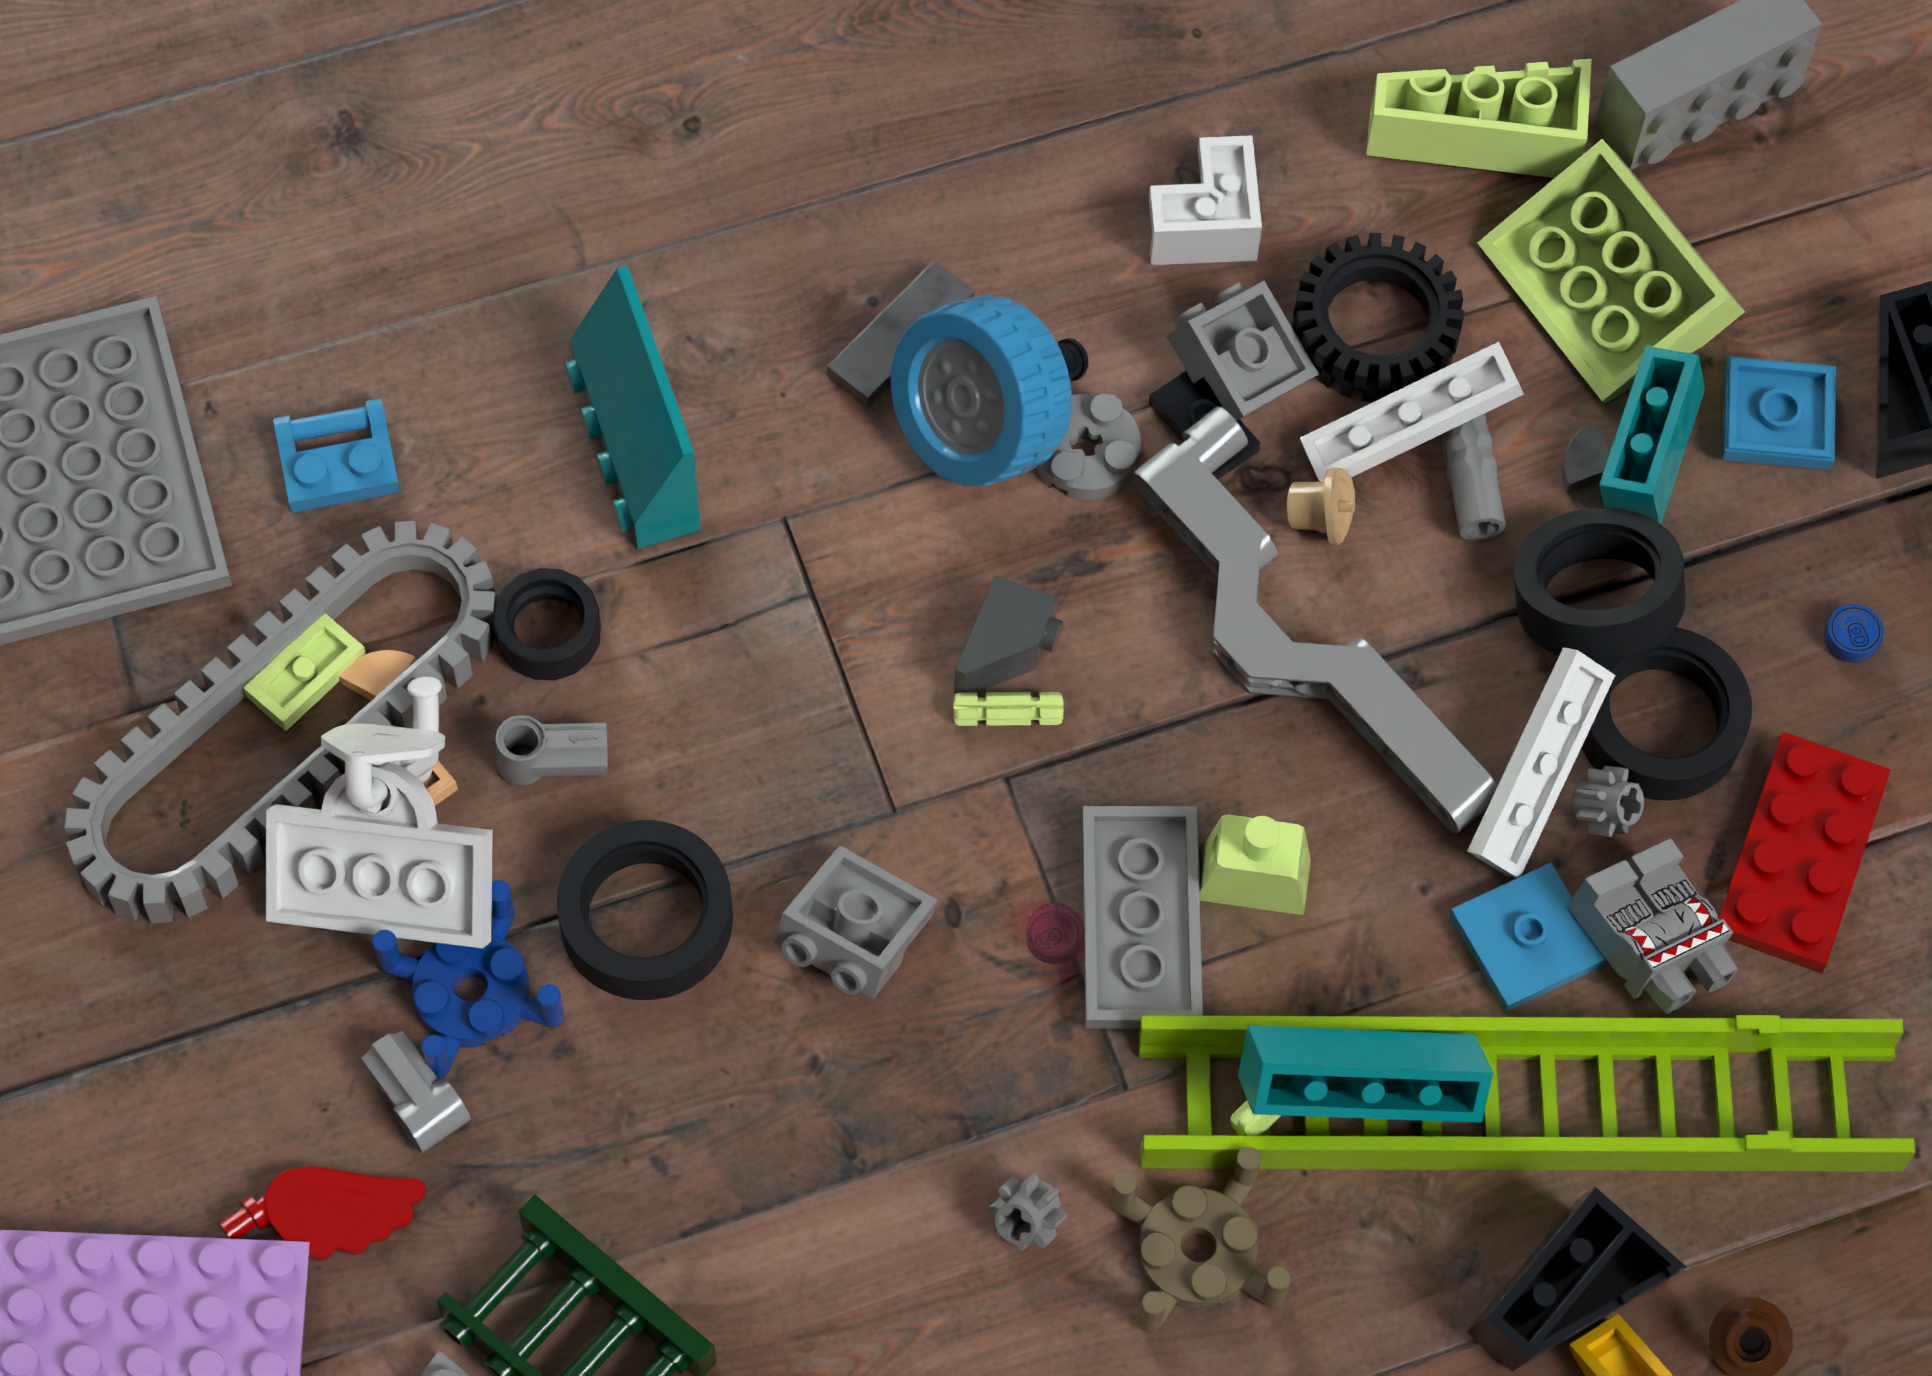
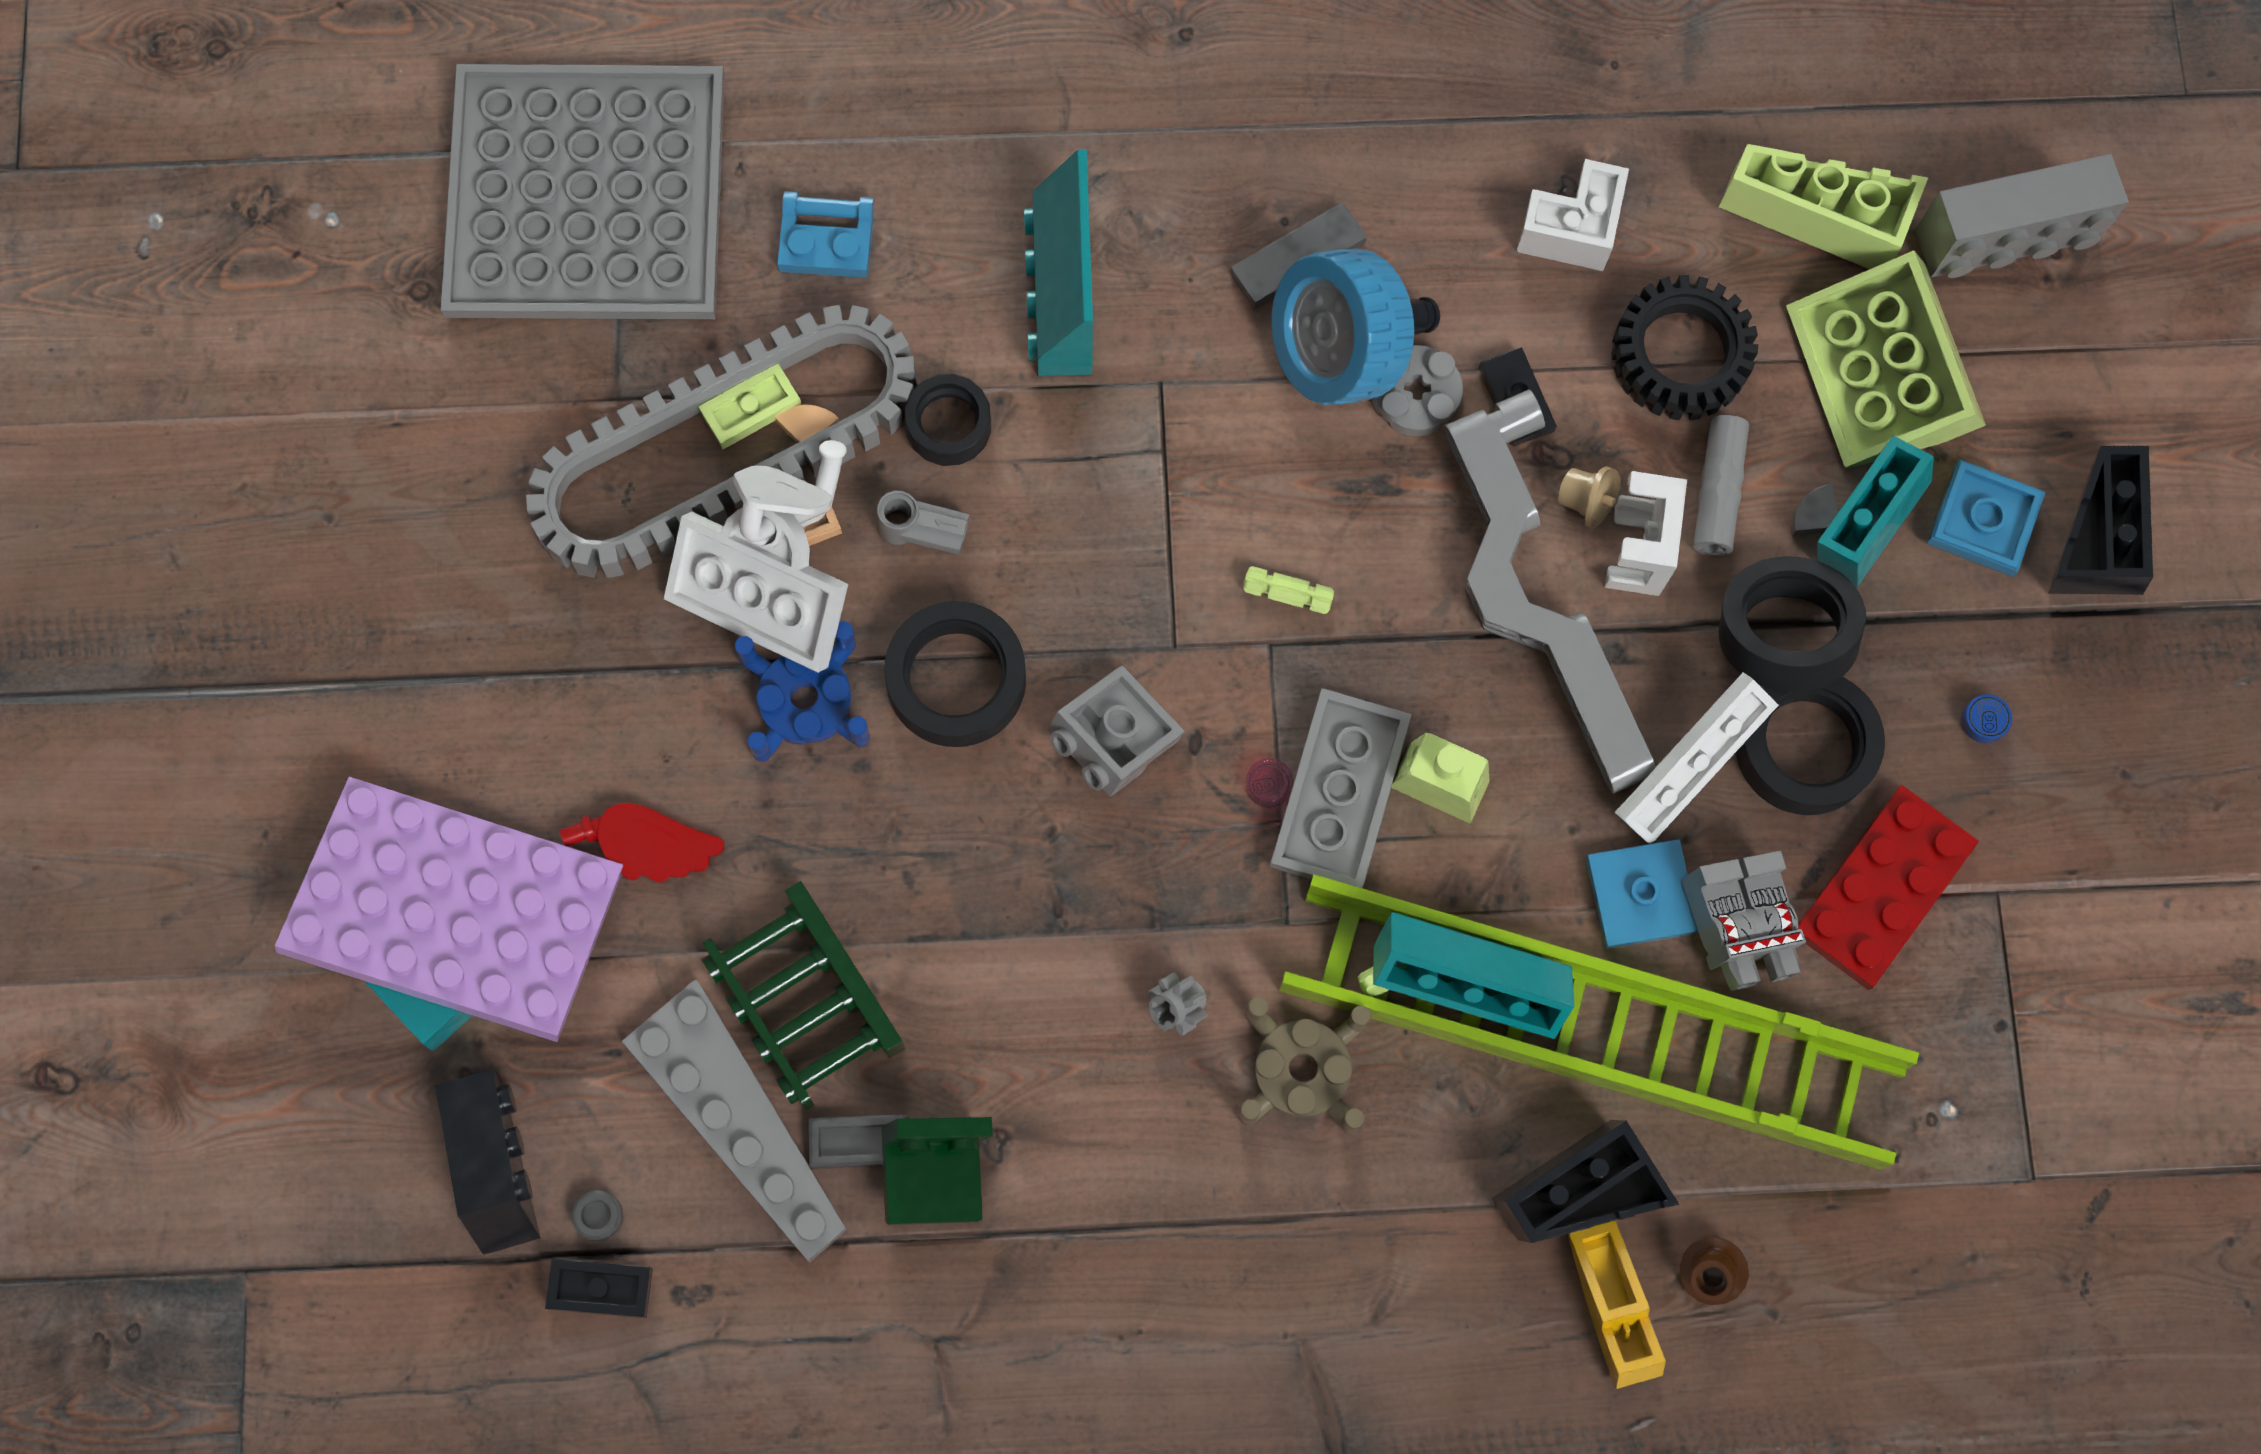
camera: 15 degrees right, 10 degrees up
(422, 1103) = (739, 777): light grey piece -> none
(1007, 636) = (1304, 531): dark grey slope -> none
(1242, 349) = (1565, 346): light grey plate -> none
(1414, 414) = (1686, 439): white plate -> none
(1418, 524) = (1659, 549): none -> white panel
(1608, 801) = (1741, 803): light grey gear -> none

